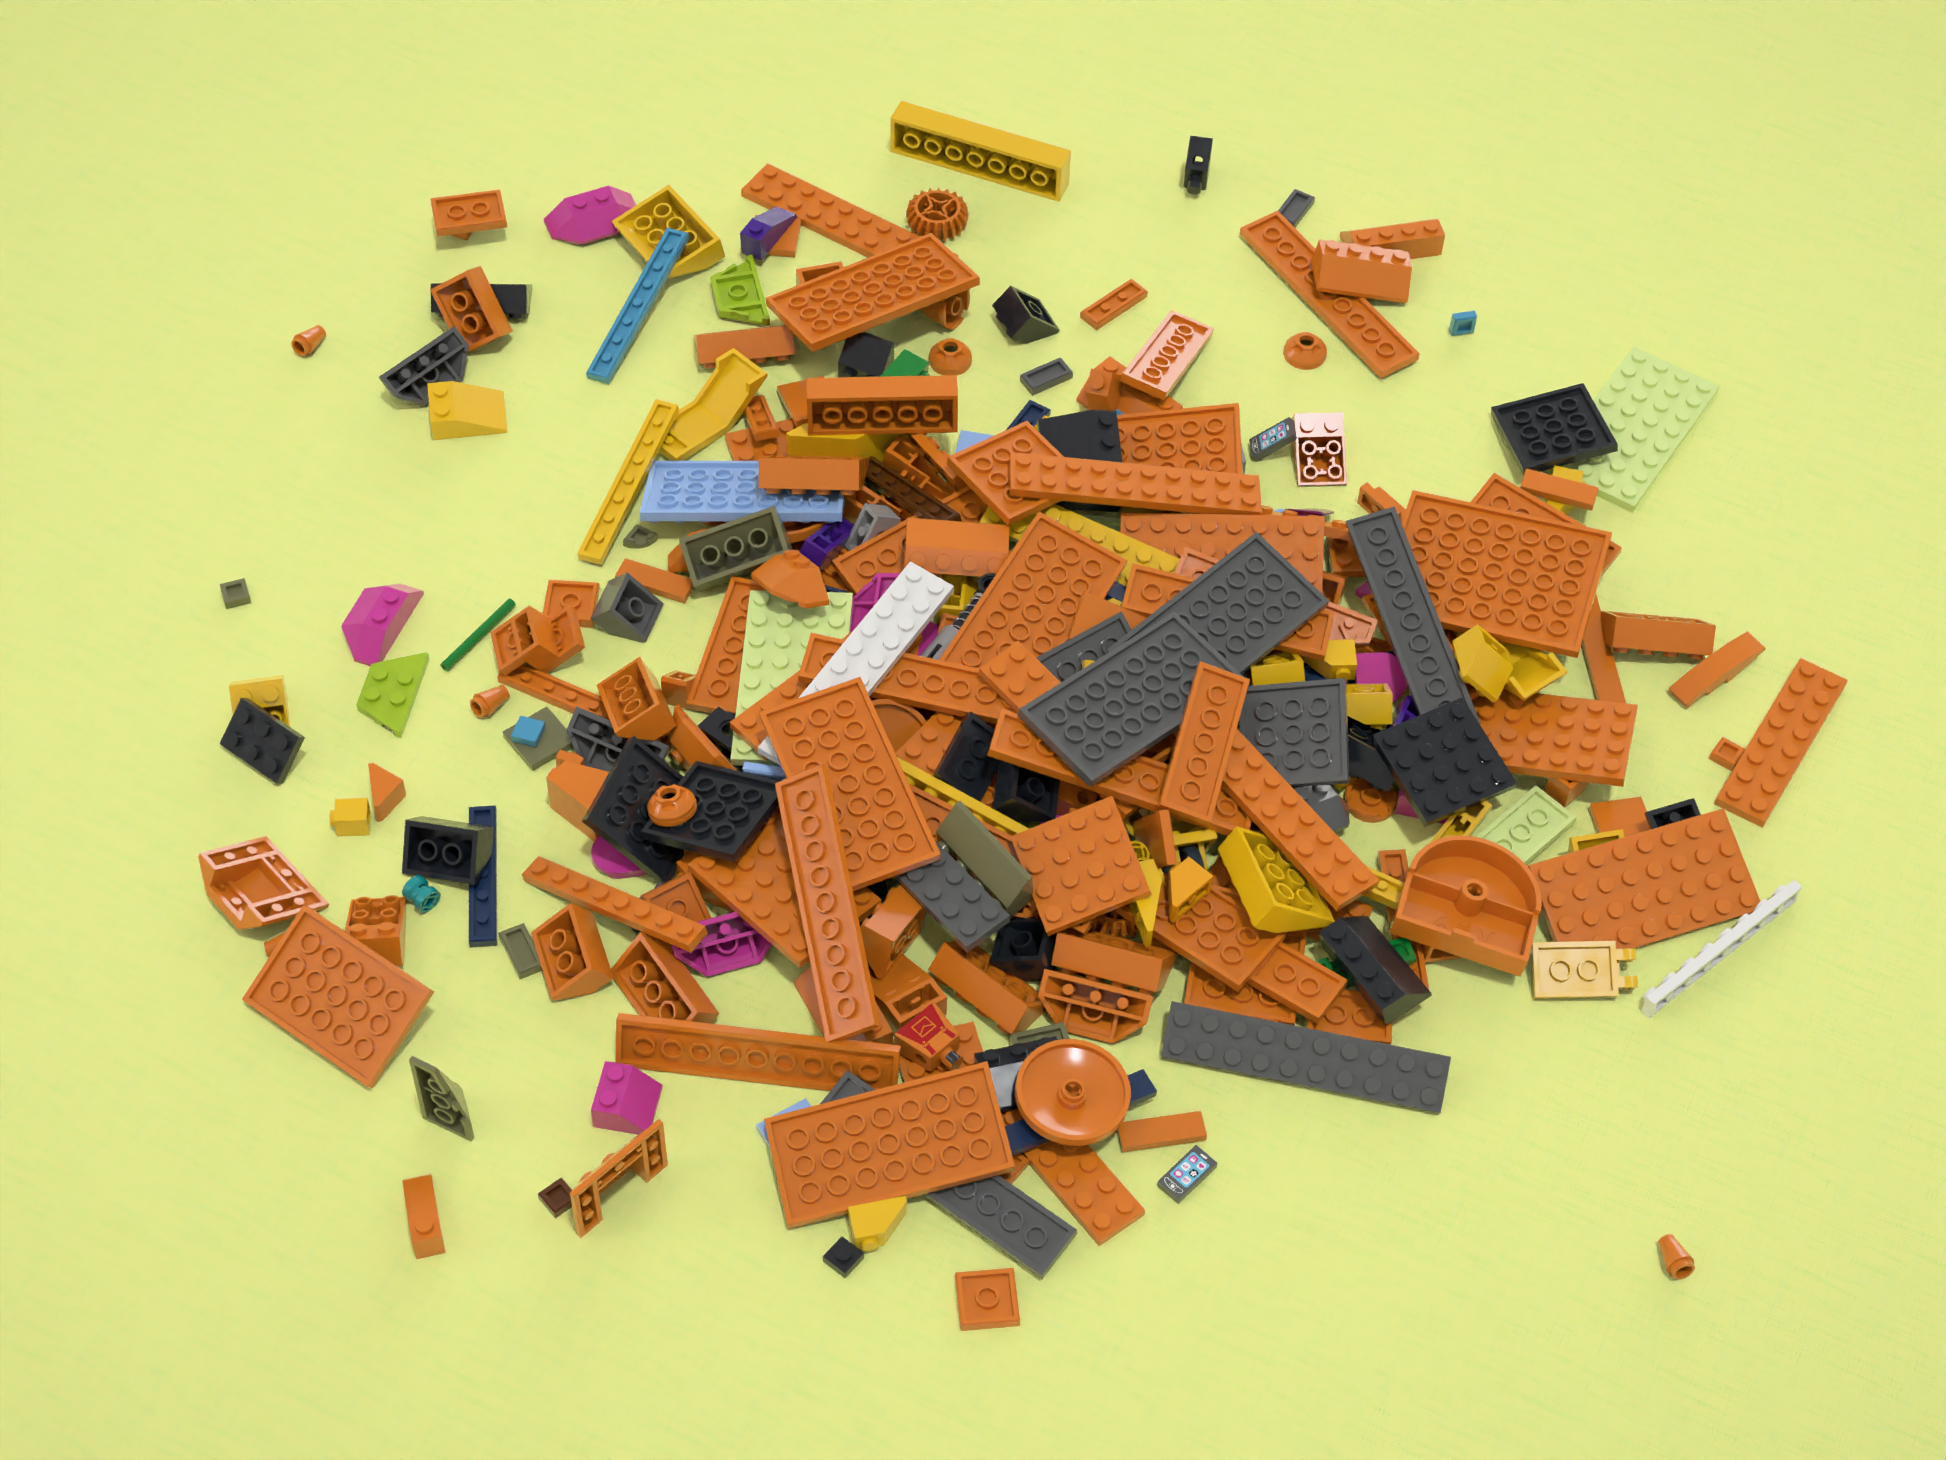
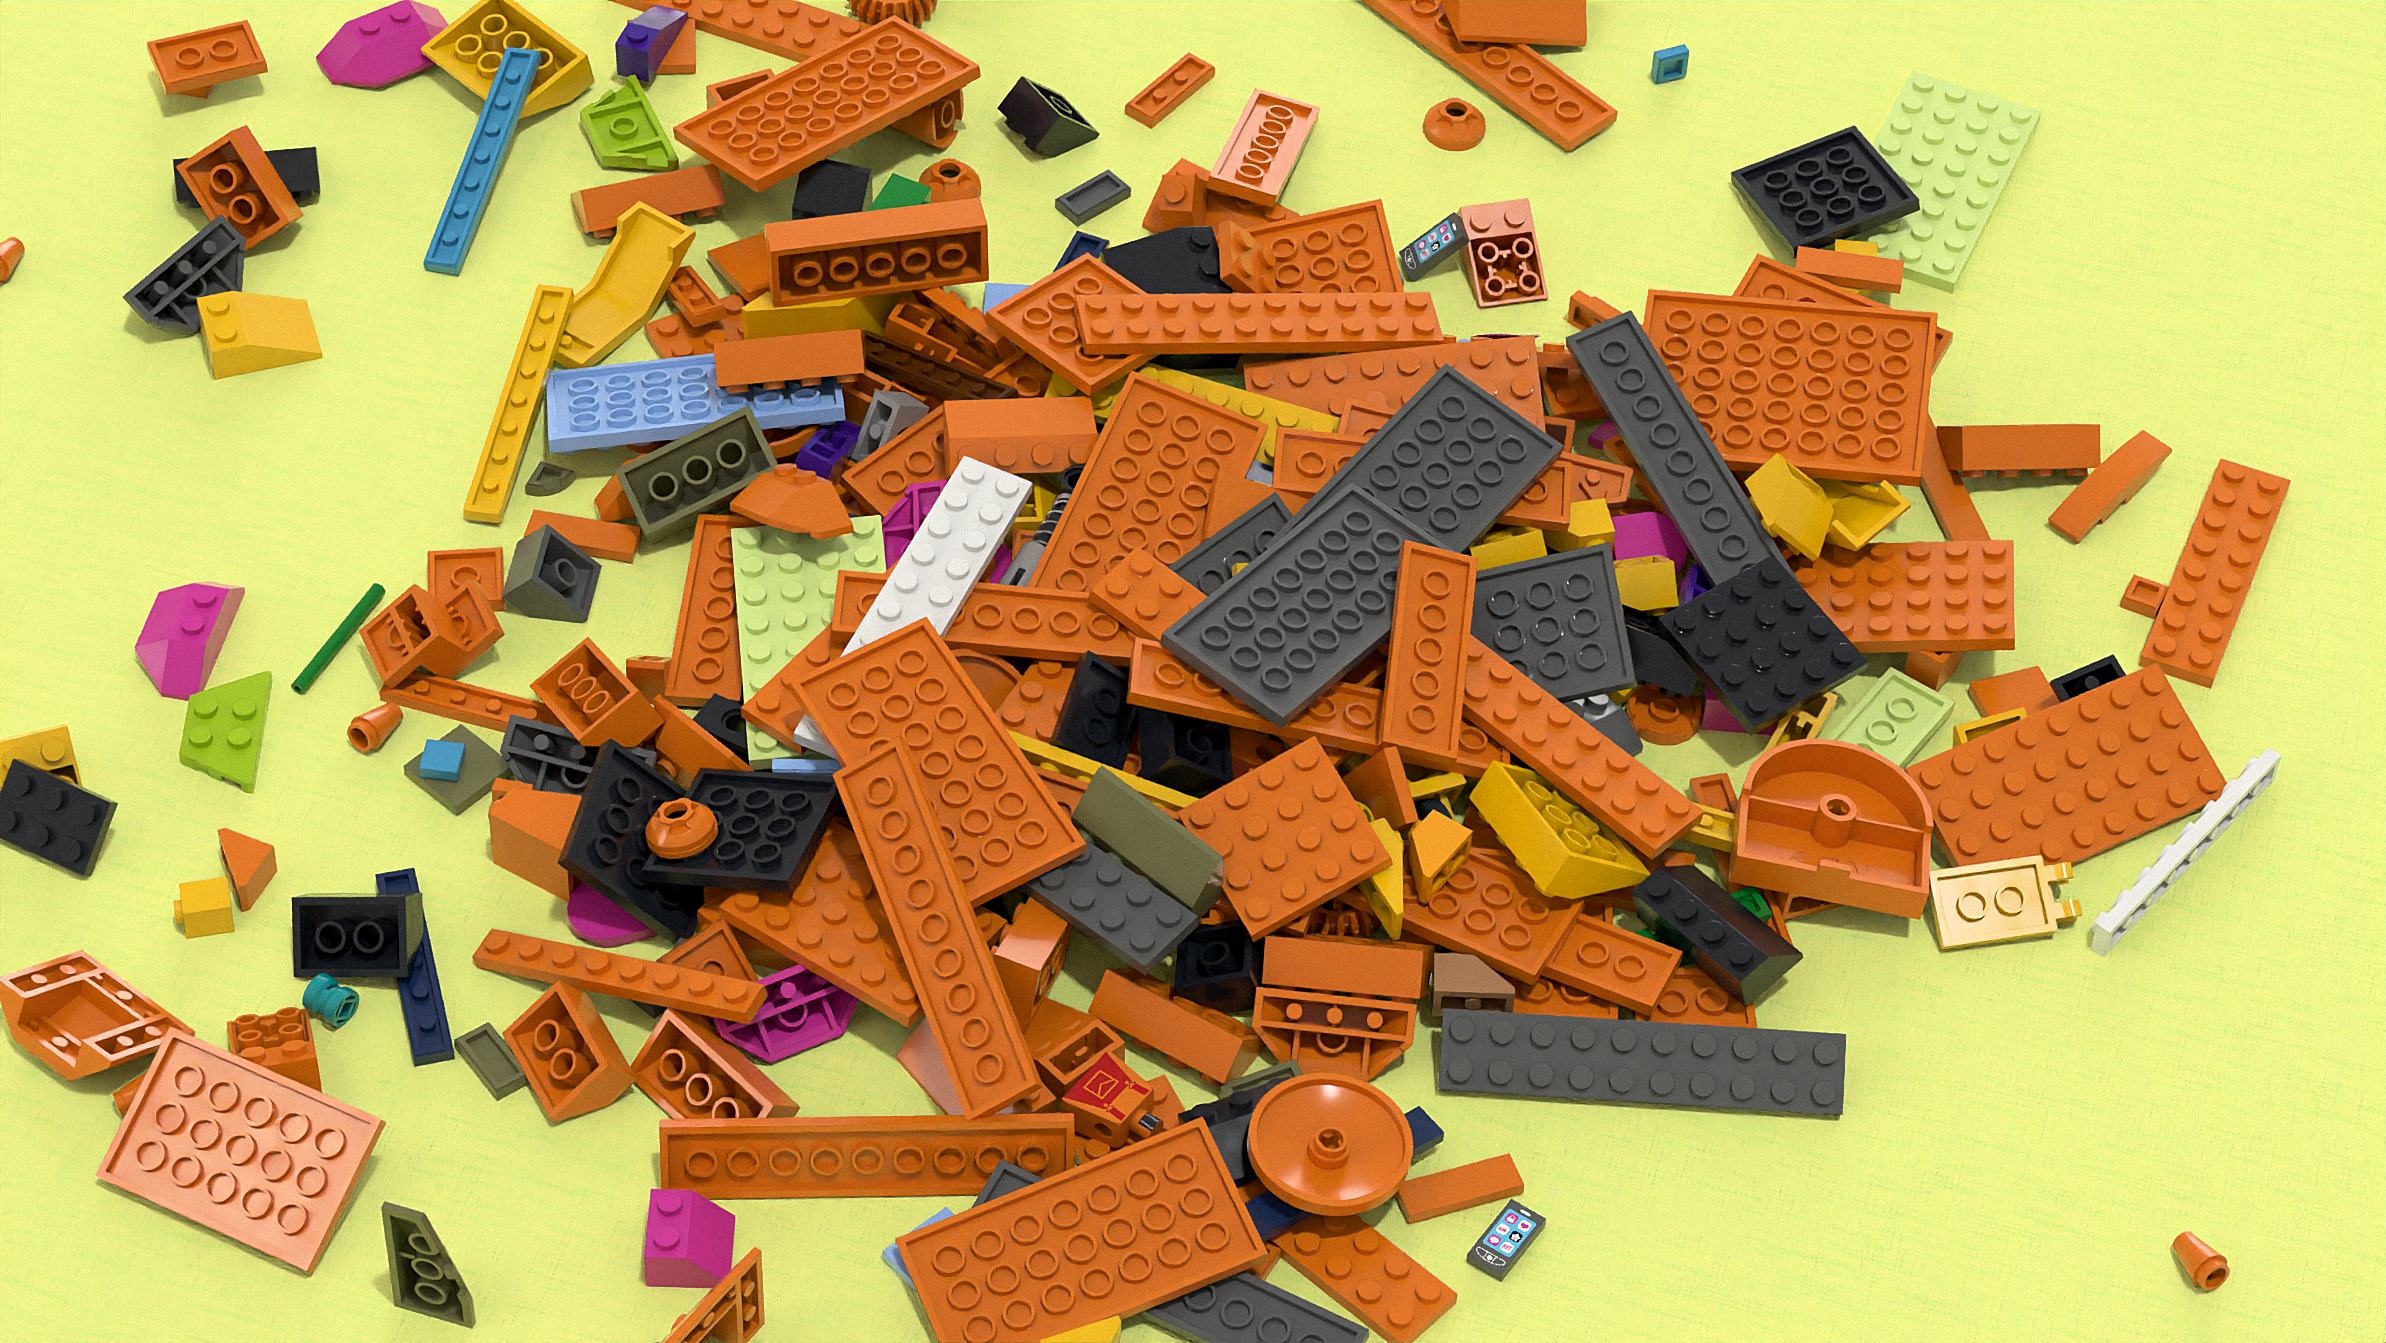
camera: 10 degrees left, 5 degrees down
(1135, 439) = (1244, 261): none -> orange plate
(1192, 986) = (1468, 984): none -> medium nougat slope

